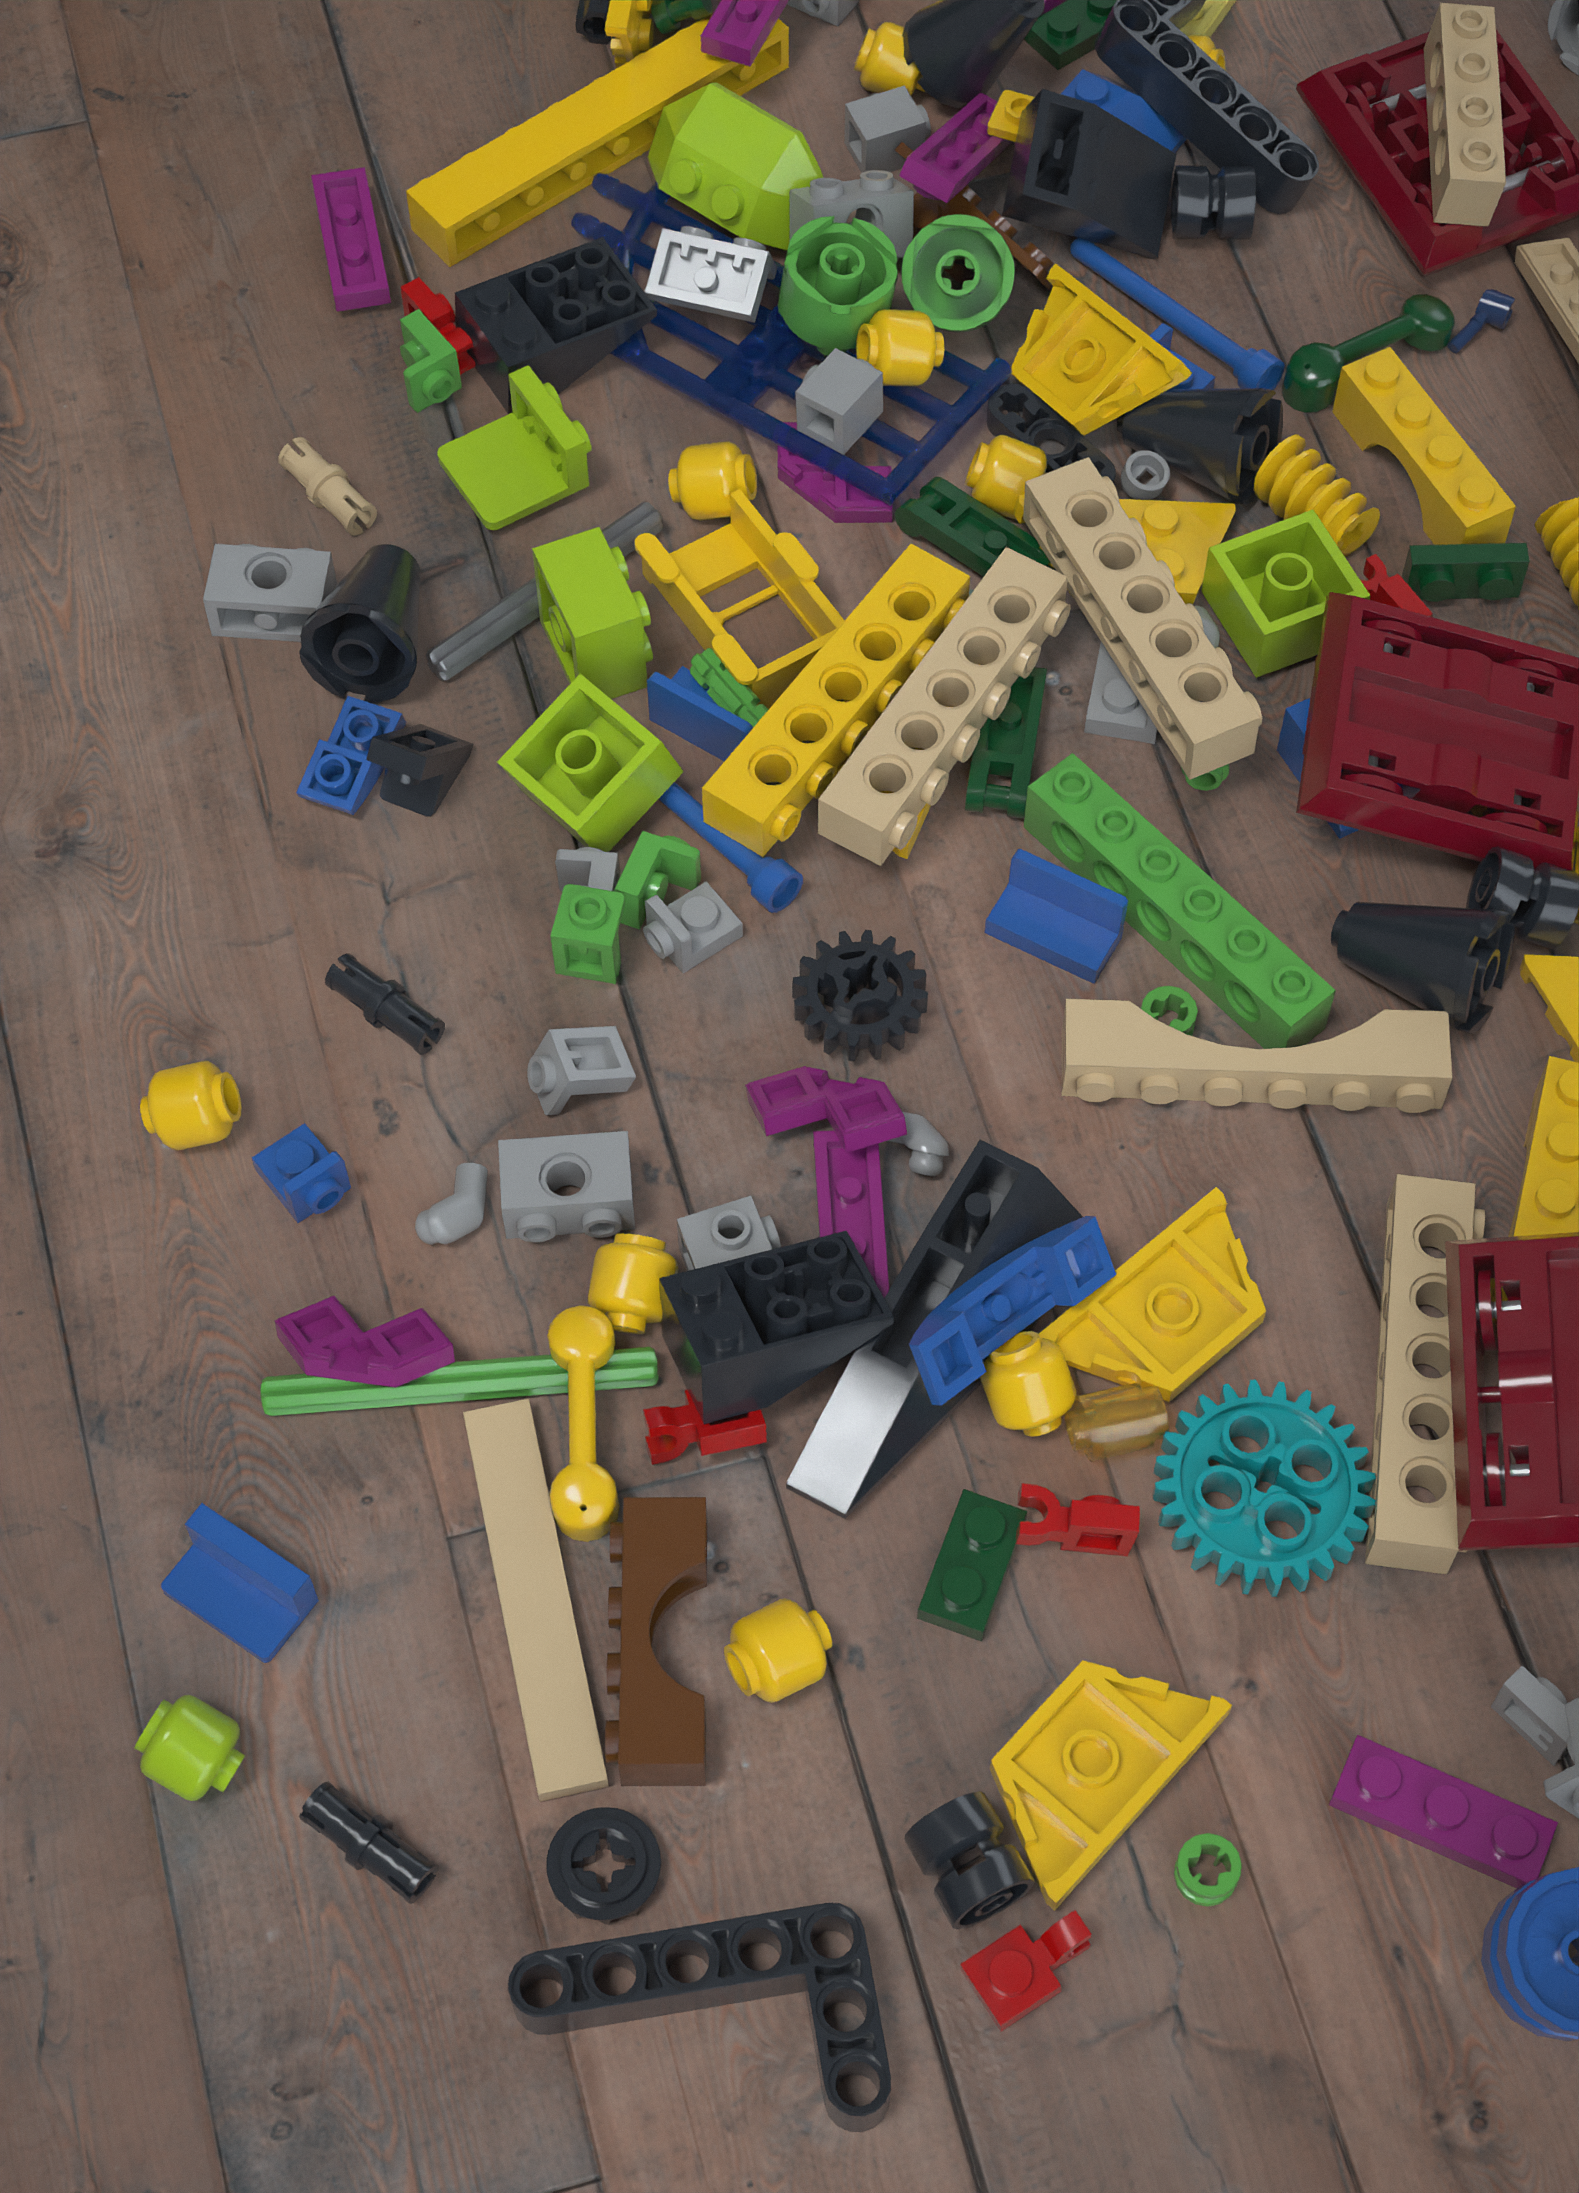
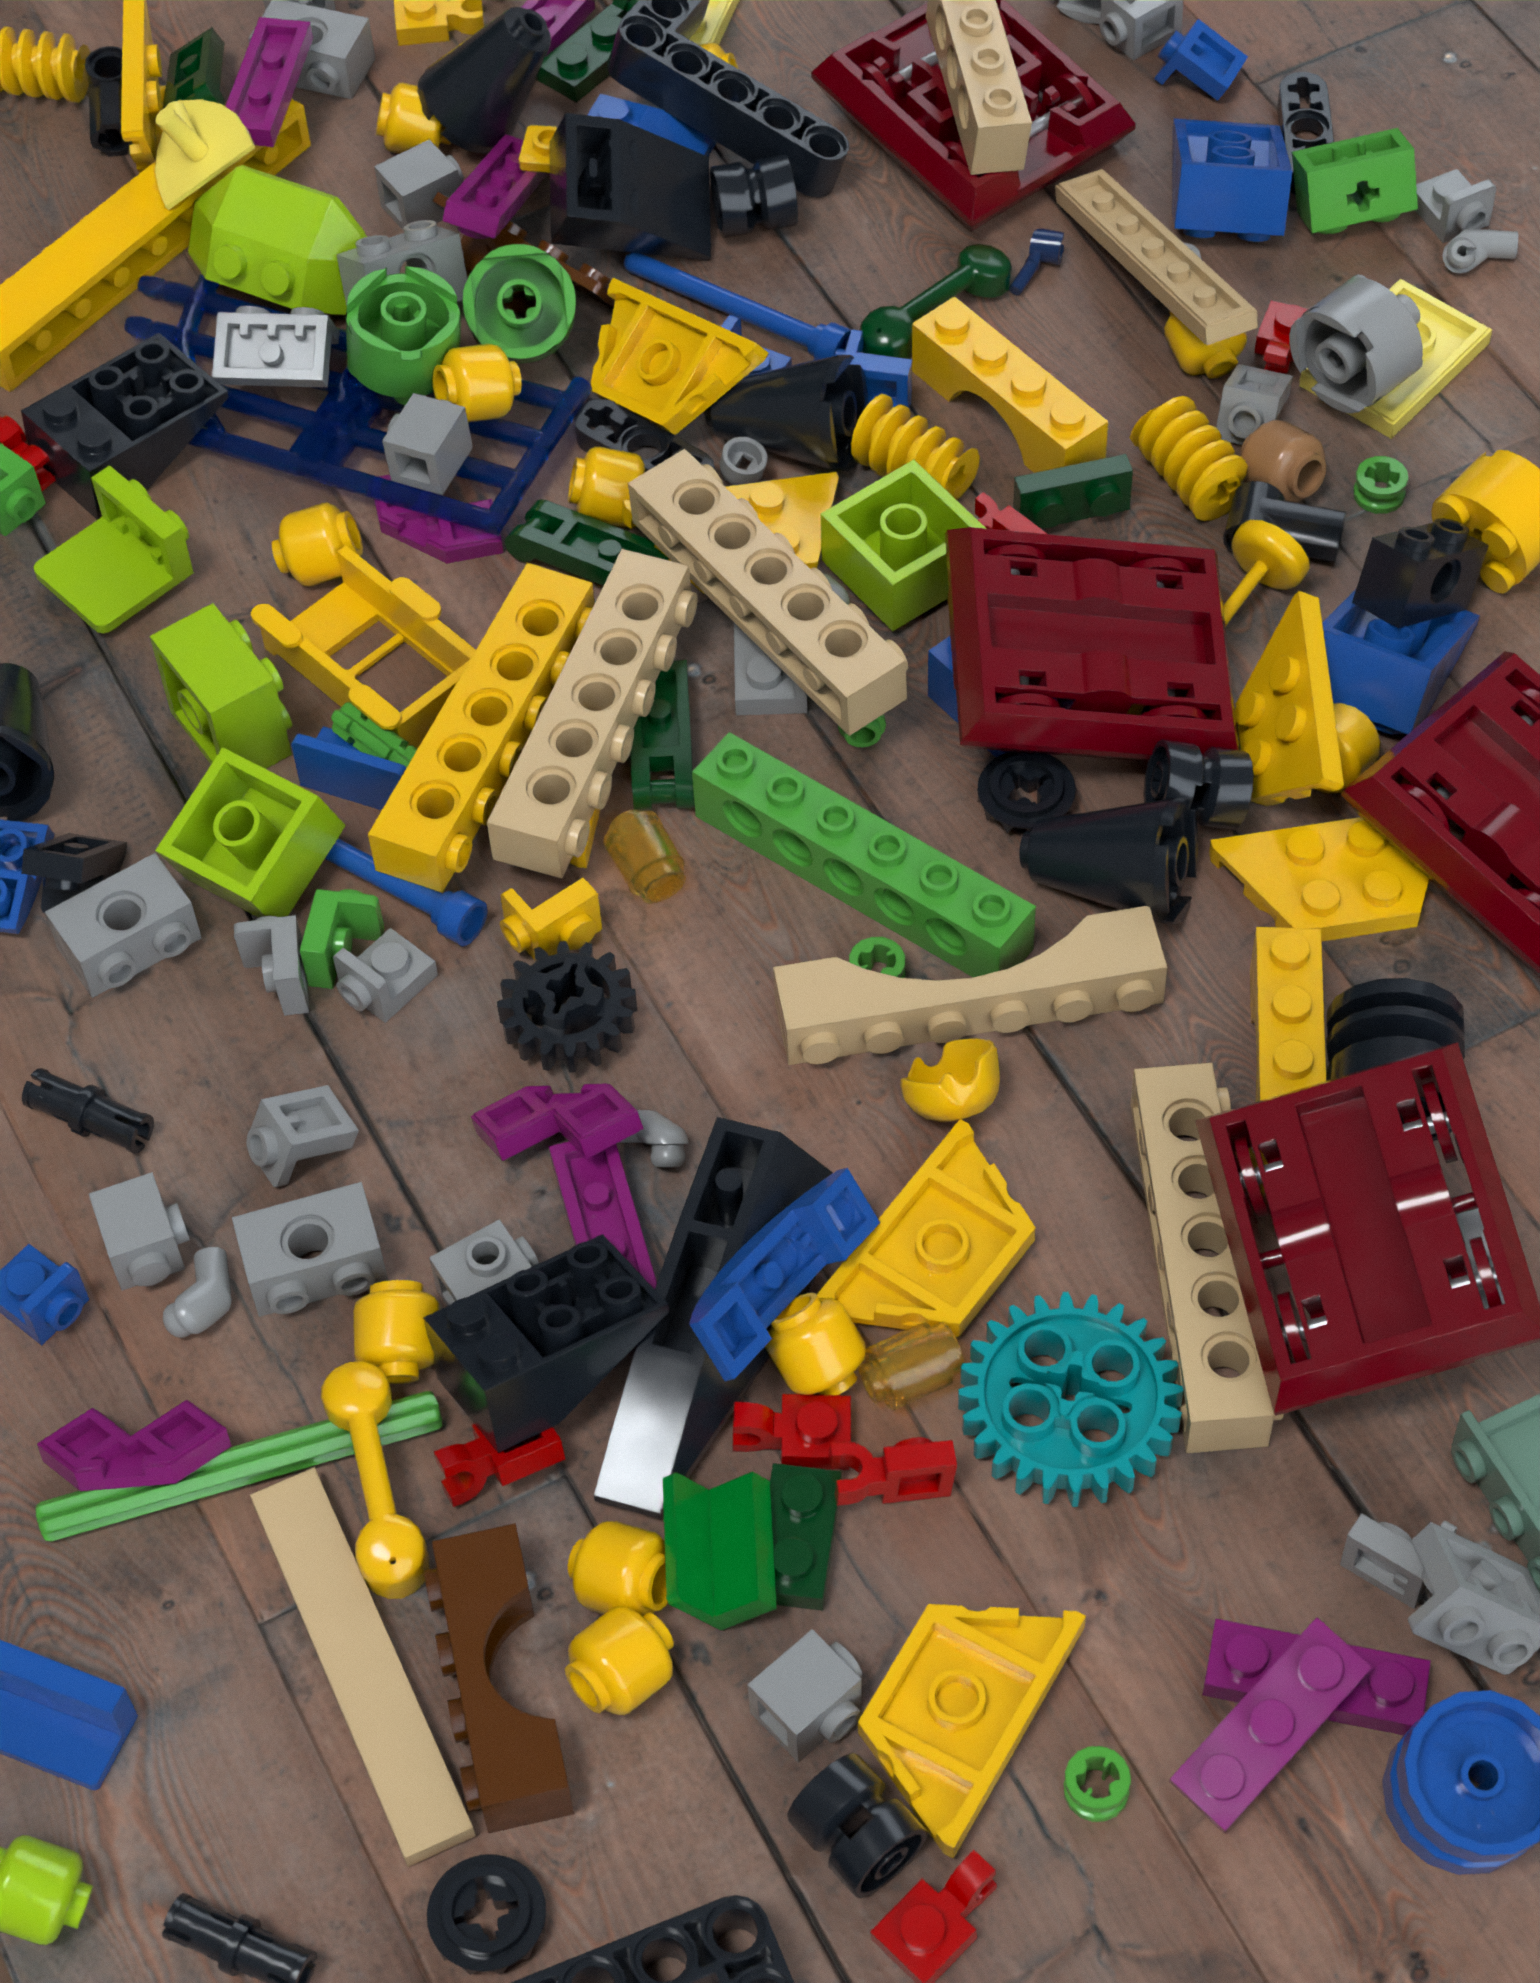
camera: 10 degrees left, 5 degrees down
(410, 1133) = (139, 1231): none -> light grey brick
(468, 803) = (94, 925): none -> light grey brick
(522, 605) = (149, 700): flat silver axle -> none
(587, 933) = (281, 1000): bright green bracket -> none
(675, 53) = (196, 146): none -> light yellow shield
(798, 1562) = (619, 1568): none -> yellow head
(875, 907) = (567, 917): none -> yellow bracket
(894, 1562) = (719, 1549): none -> green panel
(950, 1723) = (808, 1695): none -> light grey brick
(966, 858) = (645, 855): none -> clear yellow brick
(998, 1461) = (800, 1429): none -> red plate
(1058, 916) = (748, 892): blue panel -> none
(1220, 1152) = (957, 1085): none -> yellow hair
(1301, 411) = (882, 373): none -> blue bracket
(1360, 849) = (1029, 772): none -> black gear
(1387, 1851) = (1270, 1724): none -> magenta plate

